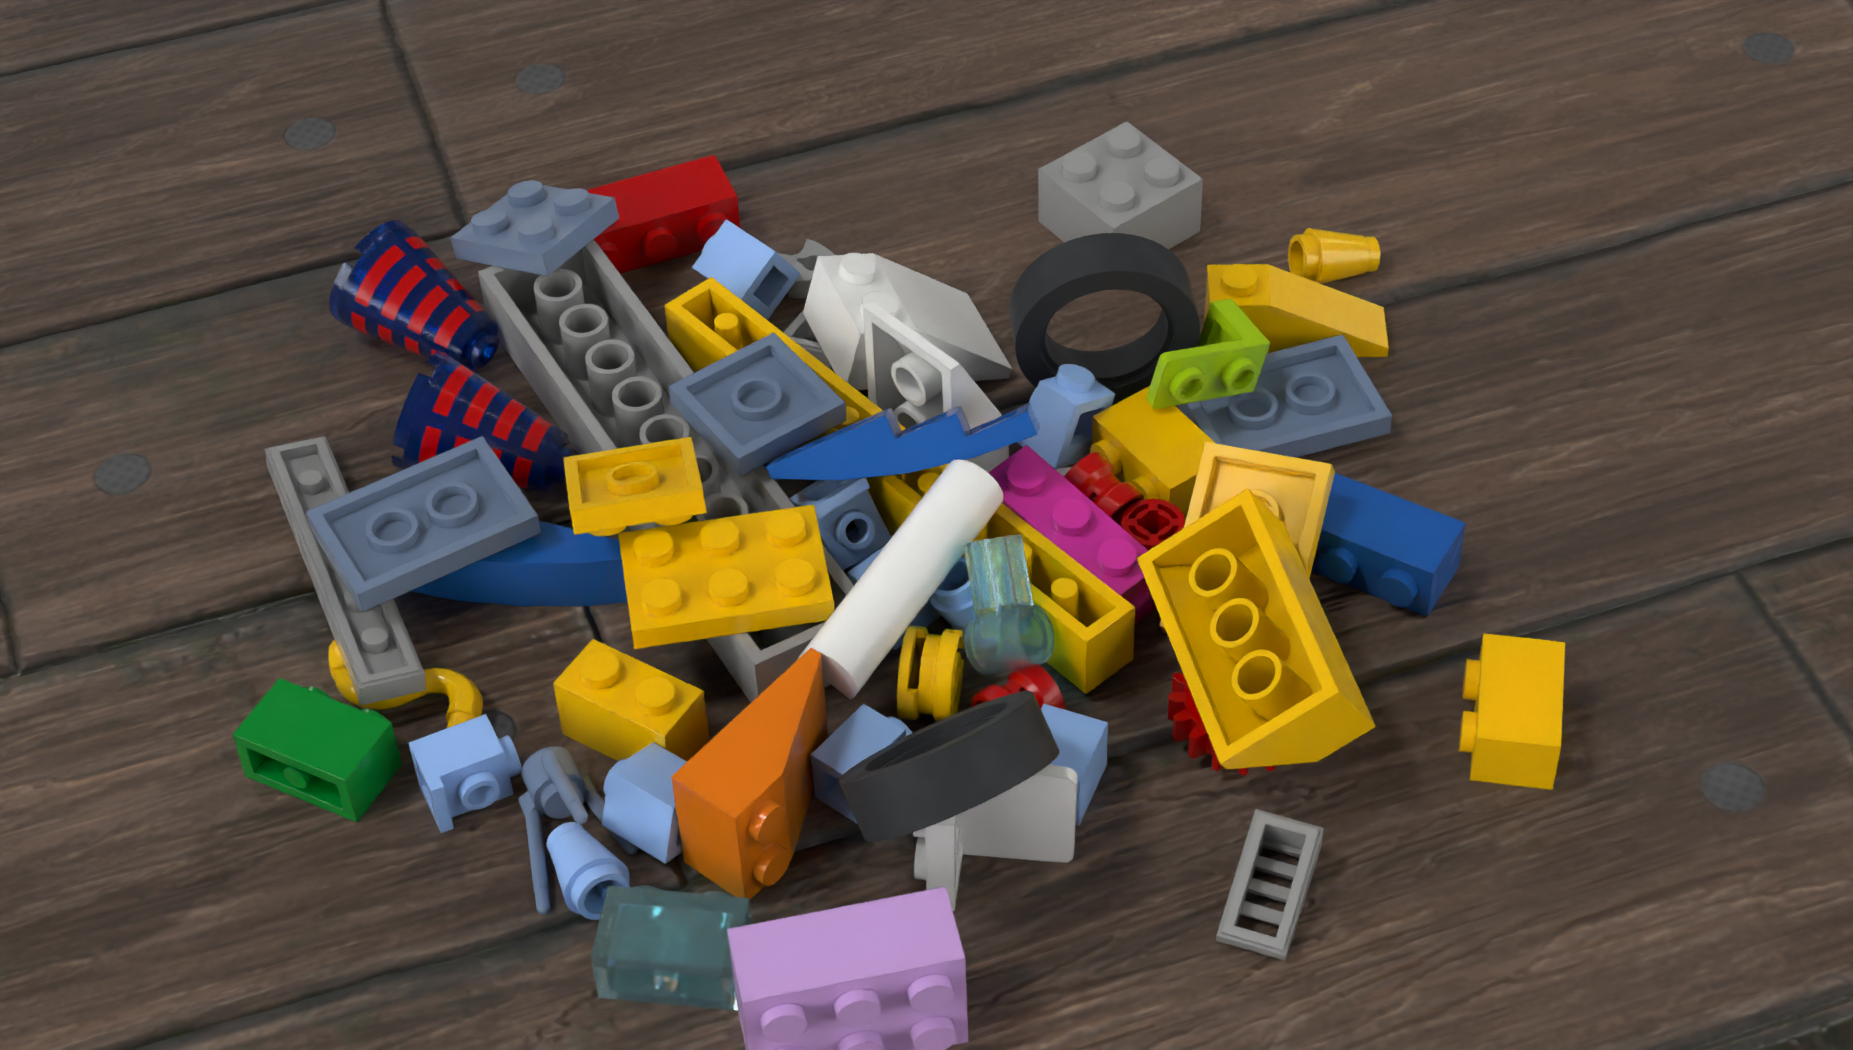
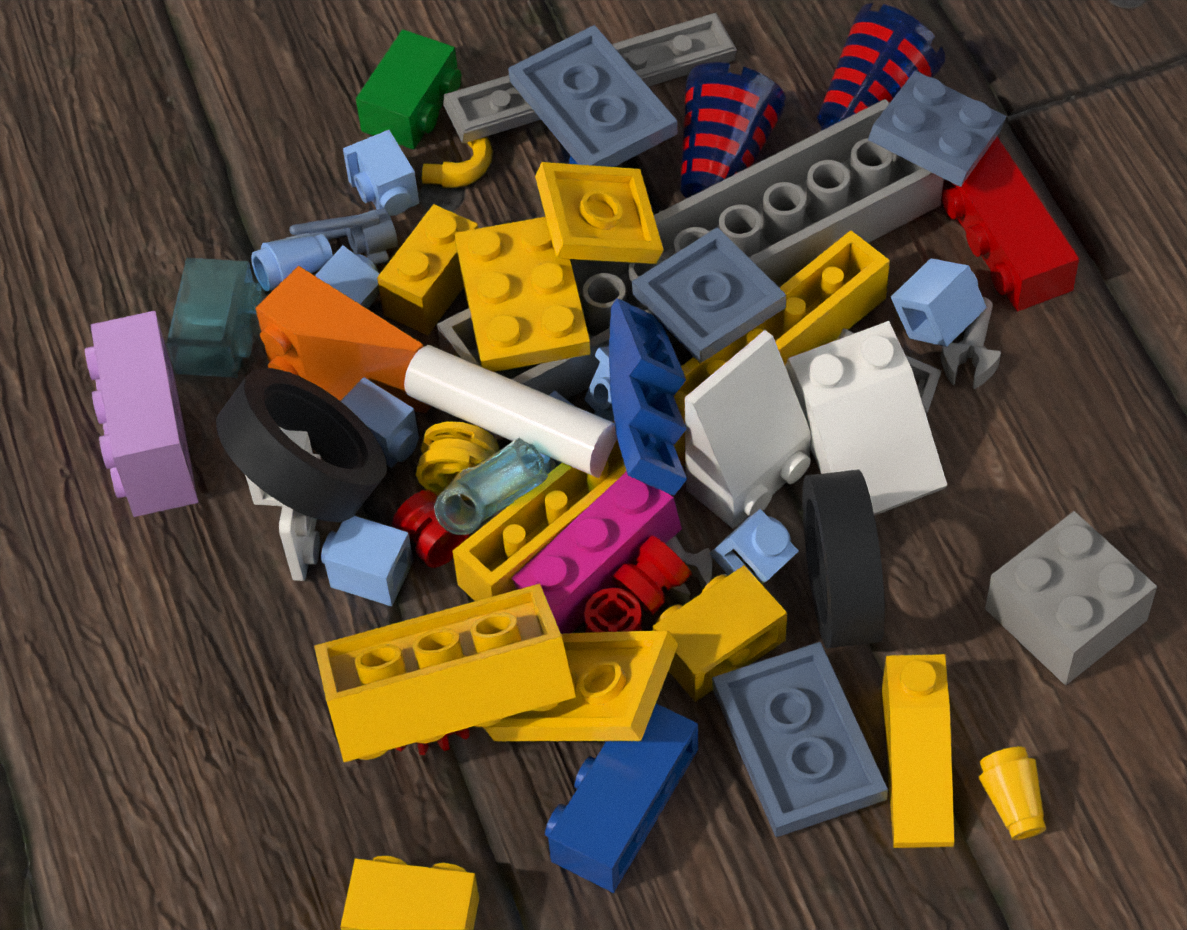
camera: 90 degrees right, 10 degrees up
(1220, 366) = (835, 677): lime bracket -> none
(1282, 836) = (283, 727): light grey slope -> none

